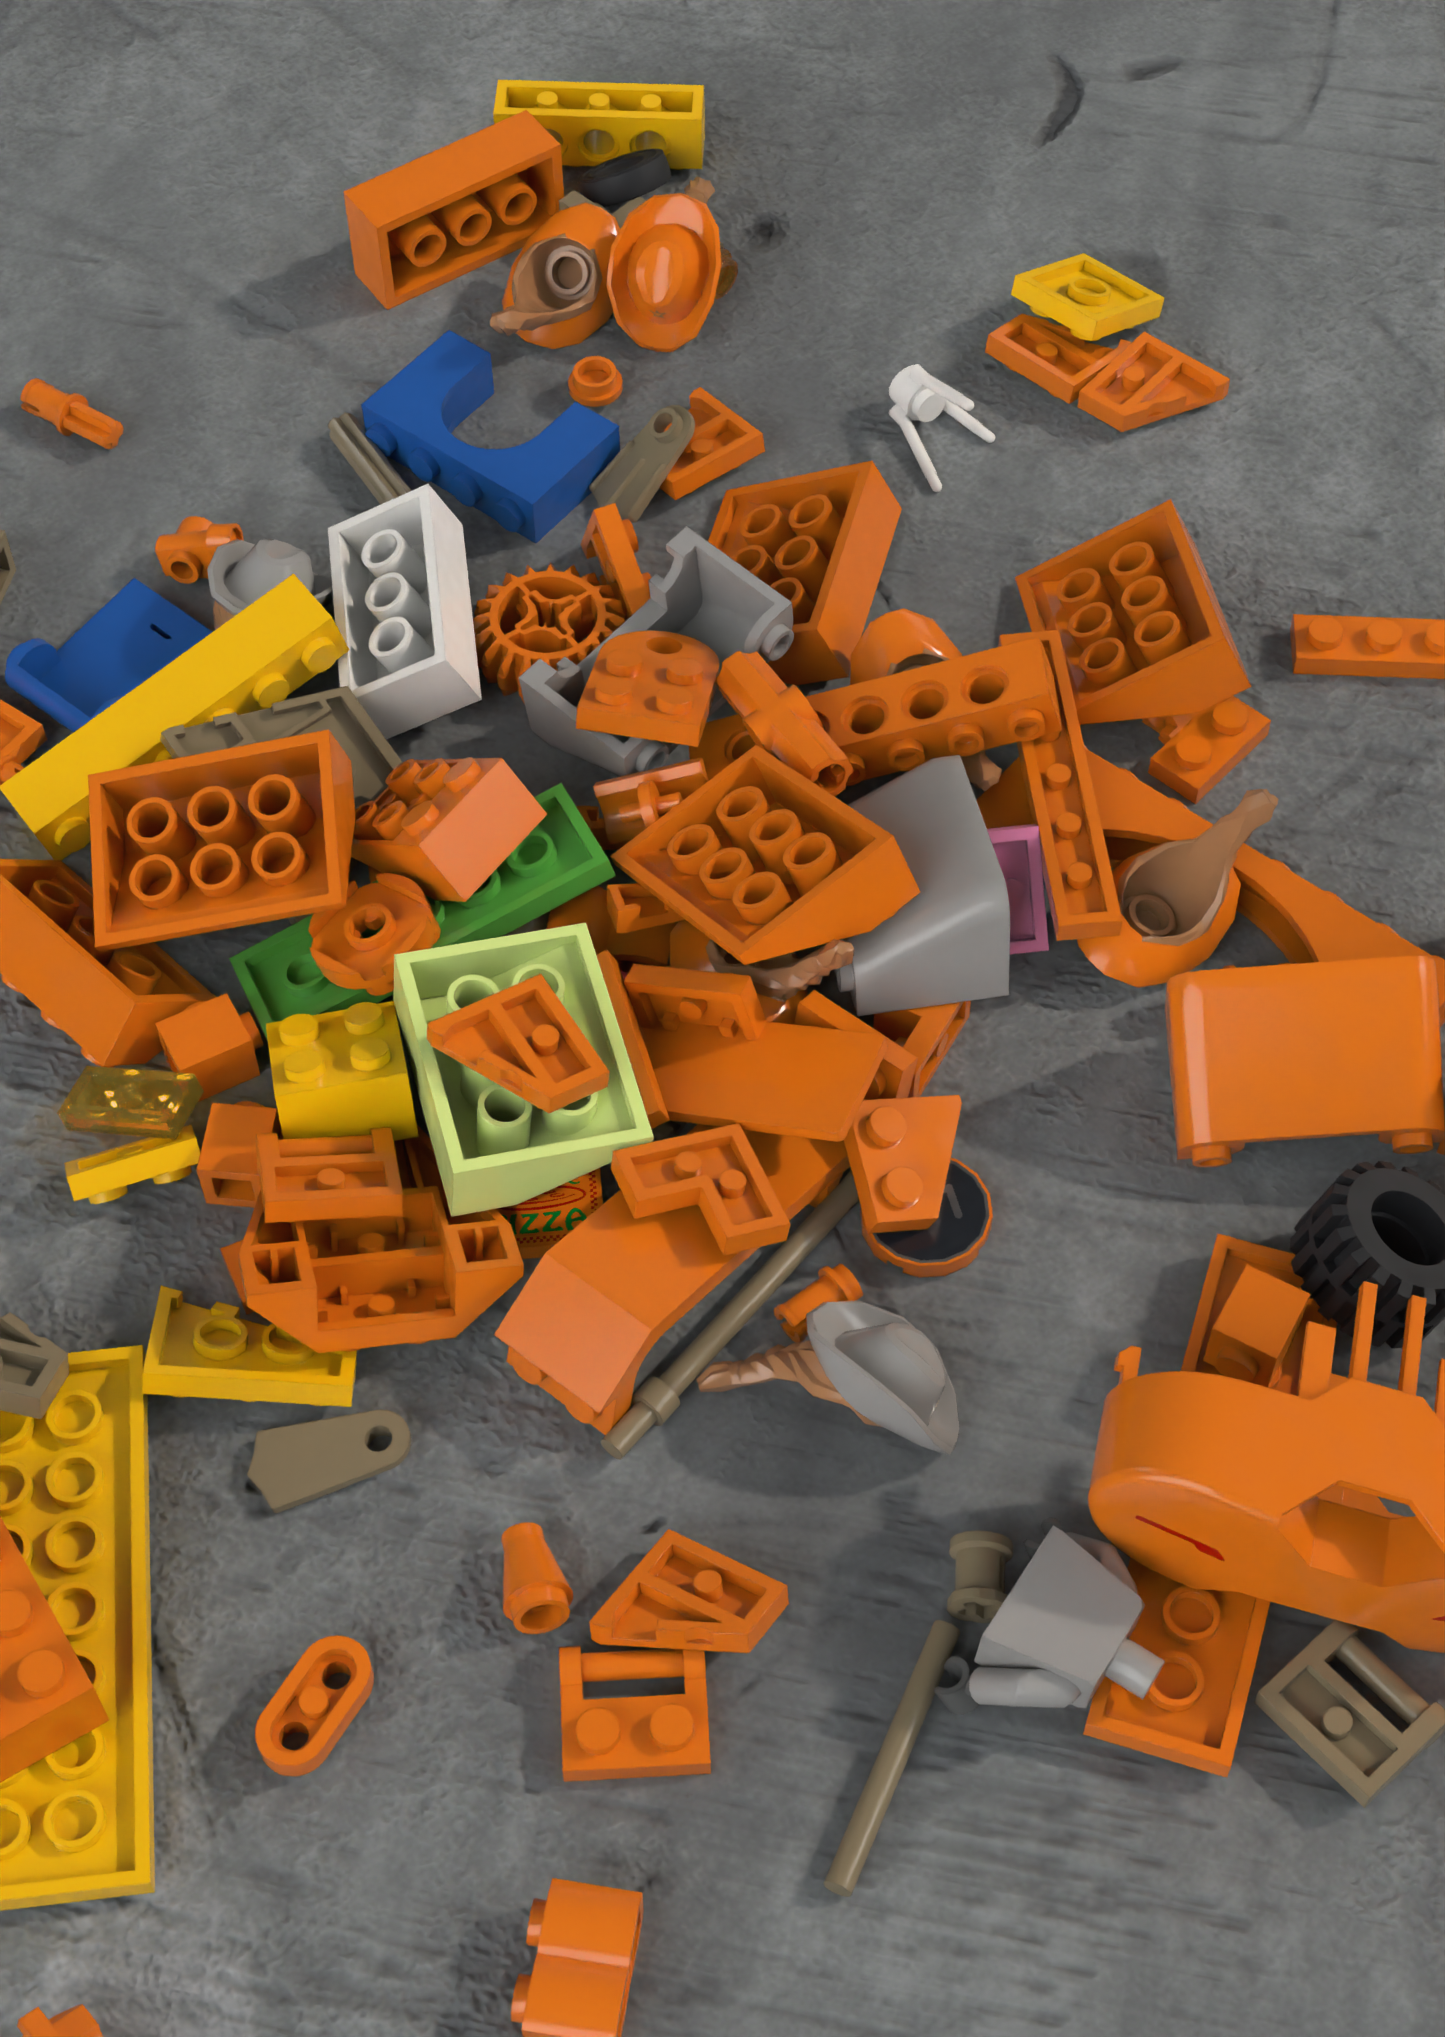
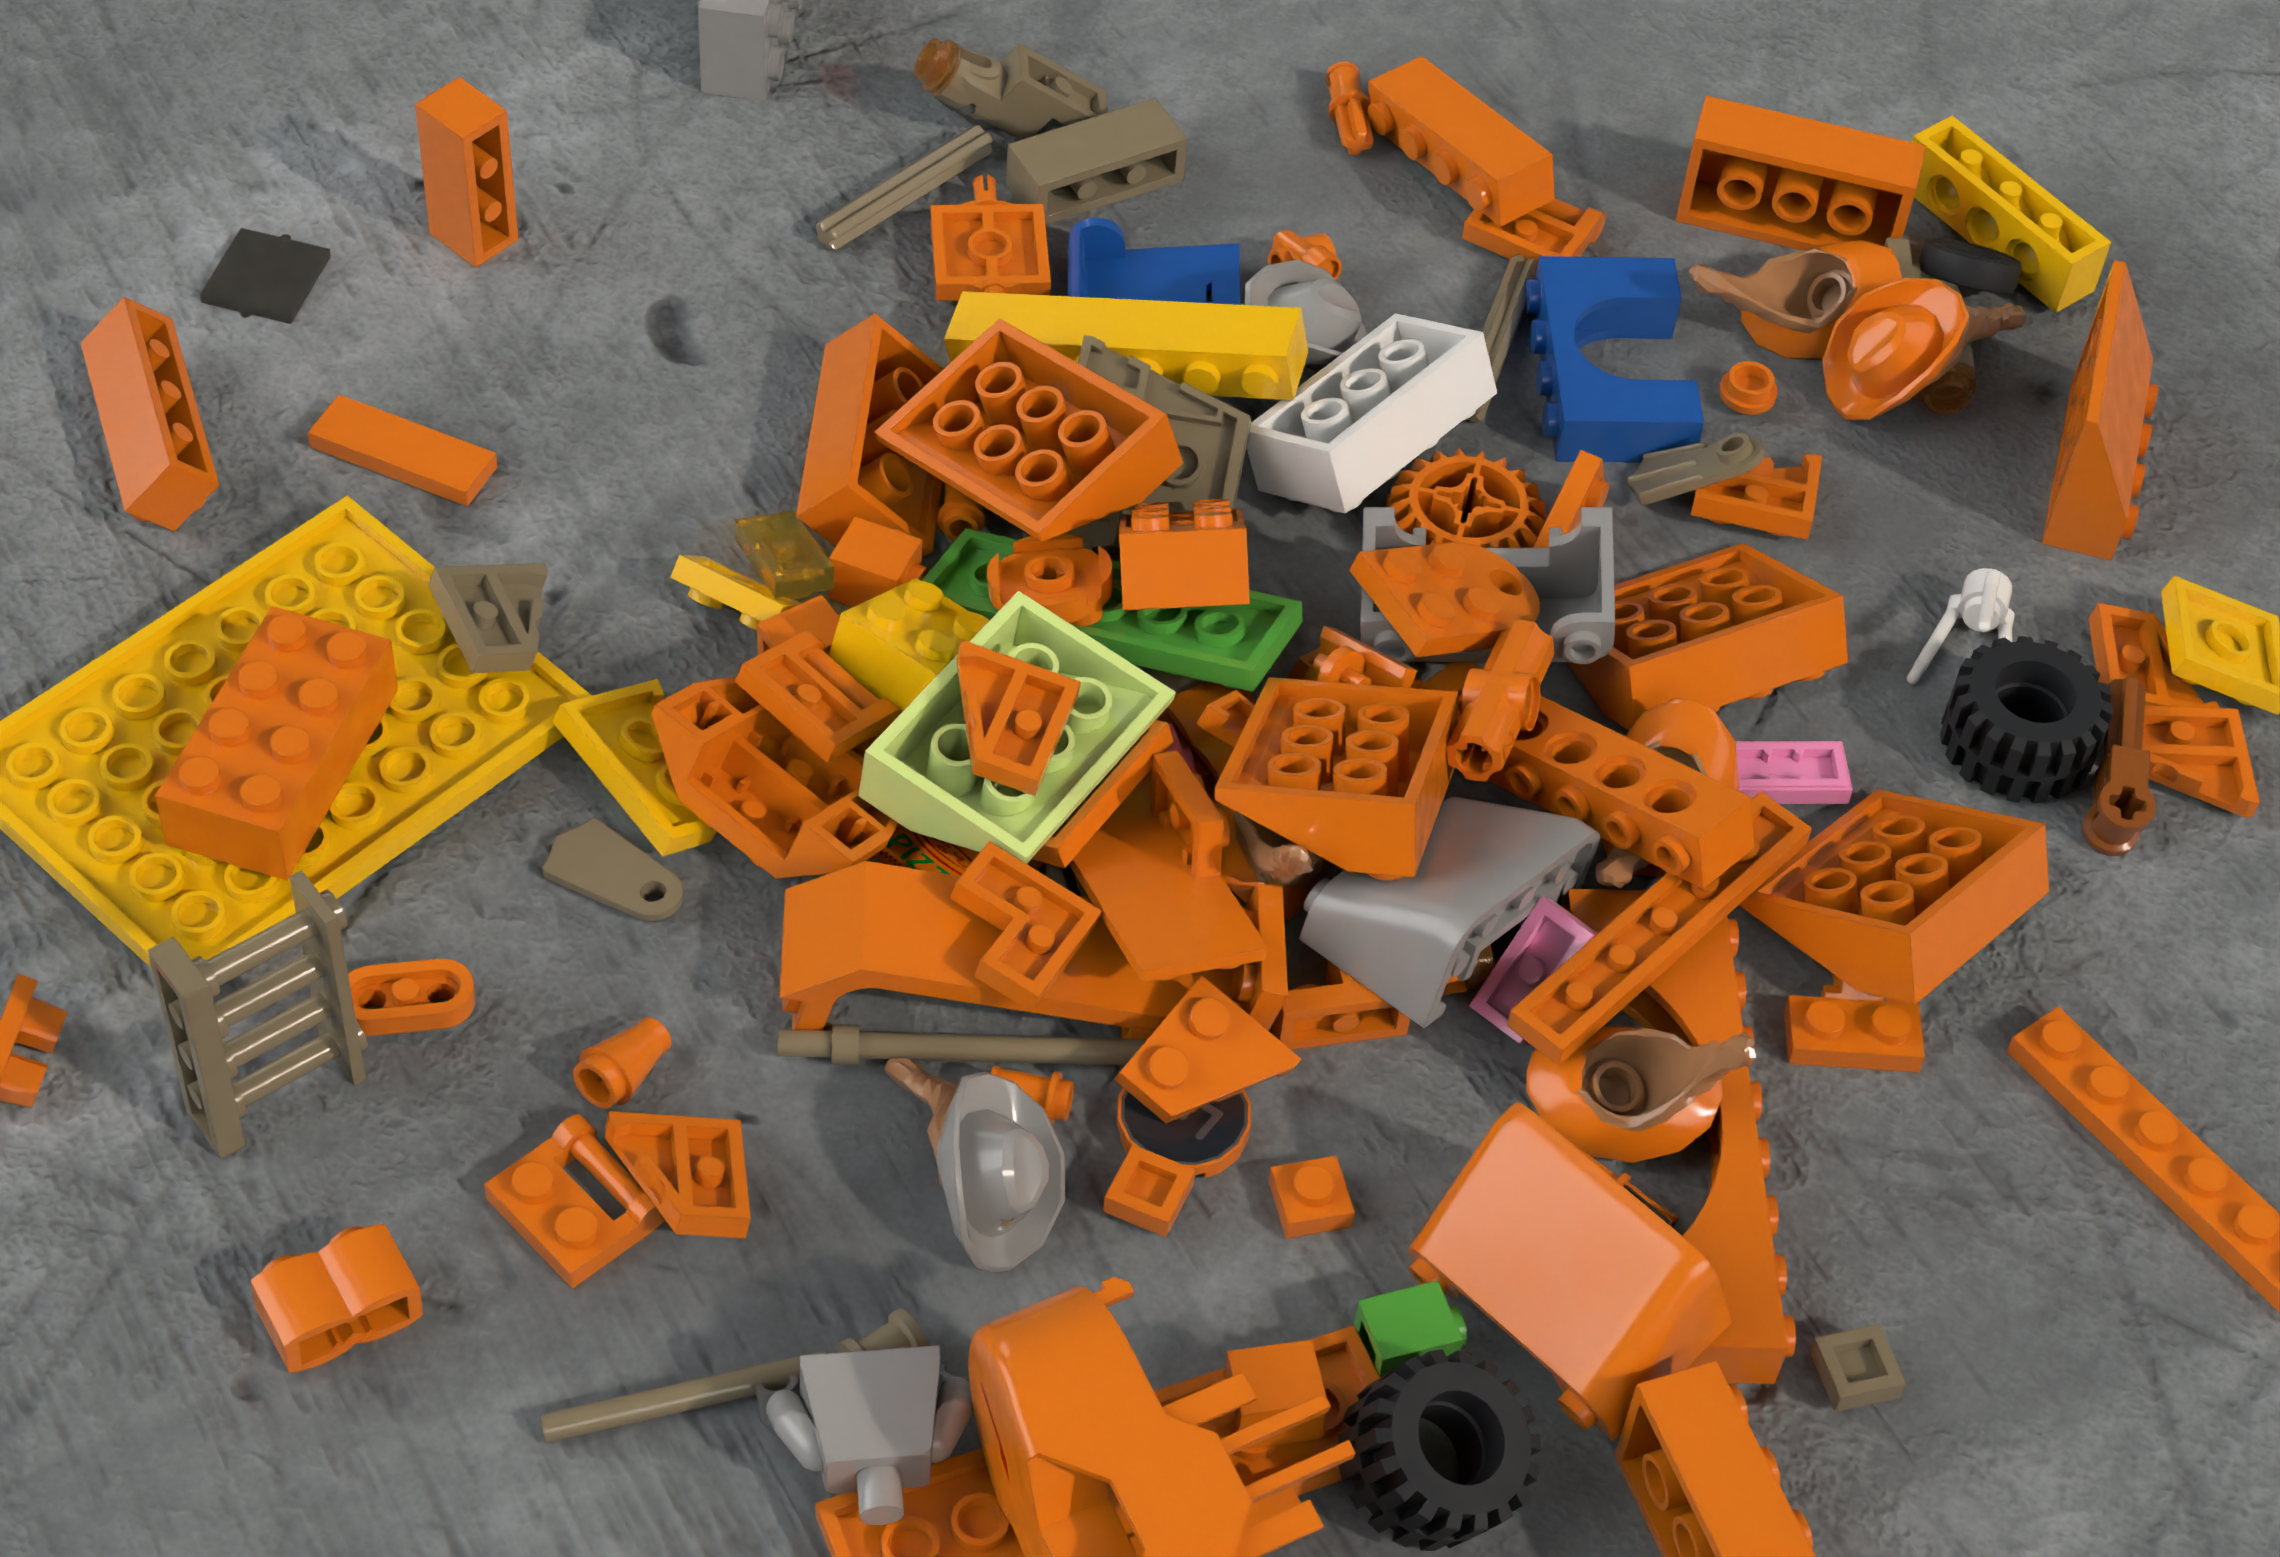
camera: 45 degrees right, 5 degrees down
(195, 368) = (1461, 140): none -> orange brick
(207, 952) = (959, 513): none -> orange pin
(279, 1868) = (199, 1024): none -> dark tan fence
(308, 391) = (1546, 231): none -> orange plate
(846, 215) = (2104, 429): none -> orange slope
(968, 606) = (1794, 771): none -> bright pink plate
(979, 1284) = (1149, 1190): none -> orange plate
(1048, 448) = (2019, 756): none -> black tyre
(1067, 1181) = (1311, 1197): none -> orange plate
(1149, 433) = (2121, 790): none -> dark orange connector
(1254, 1199) = (1409, 1325): none -> bright green brick

